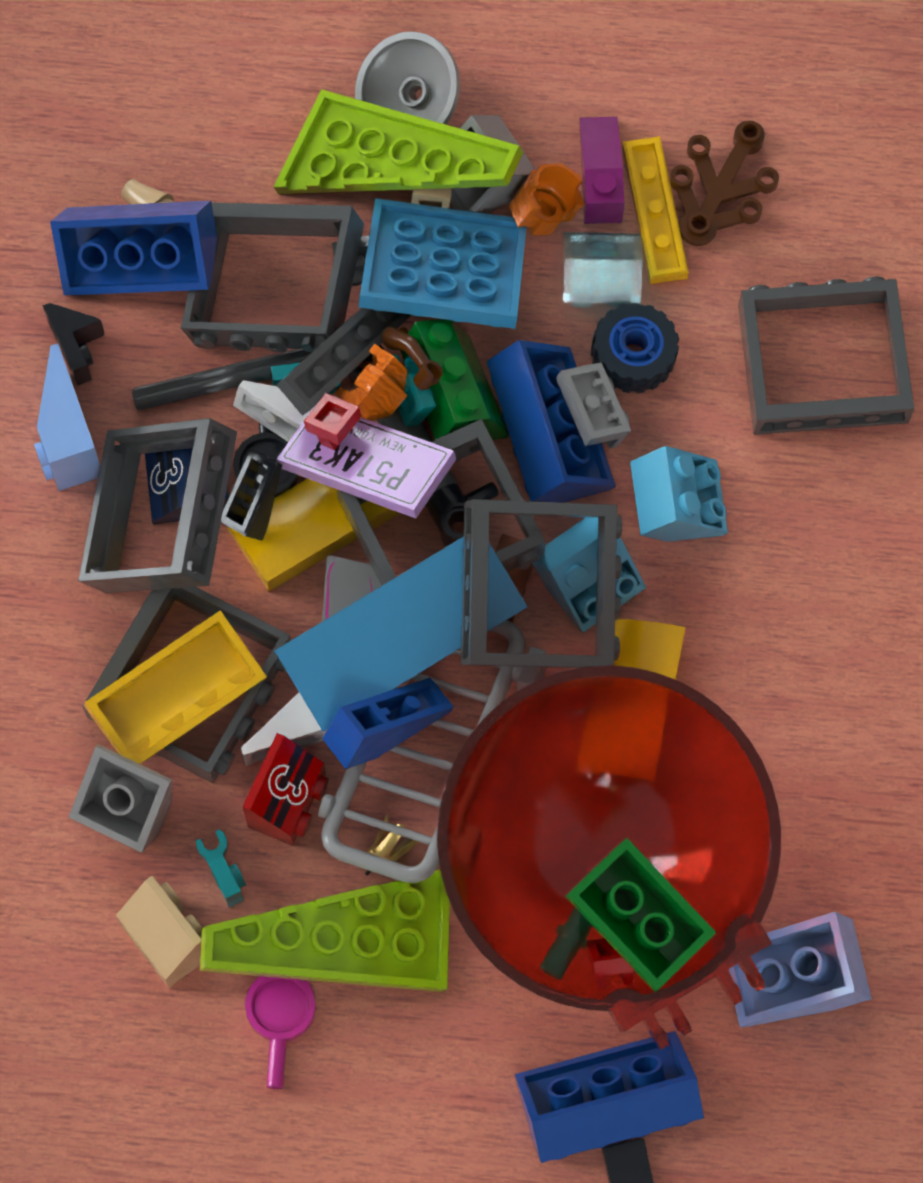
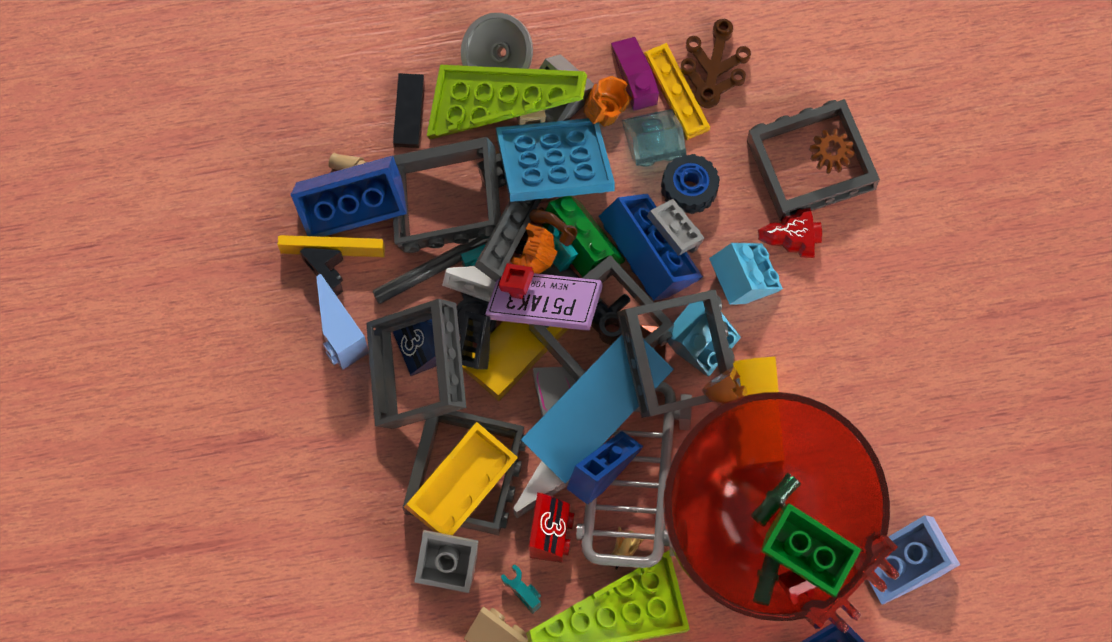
camera: 15 degrees left, 0 degrees up
(112, 315) = (348, 246): none -> yellow tile
(258, 144) = (408, 110): none -> black tile
(587, 647) = (725, 387): none -> dark orange brick
(613, 829) = (775, 499): none -> clear green pin
(767, 456) = (795, 233): none -> red rock
(839, 356) = (820, 151): none -> dark orange gear

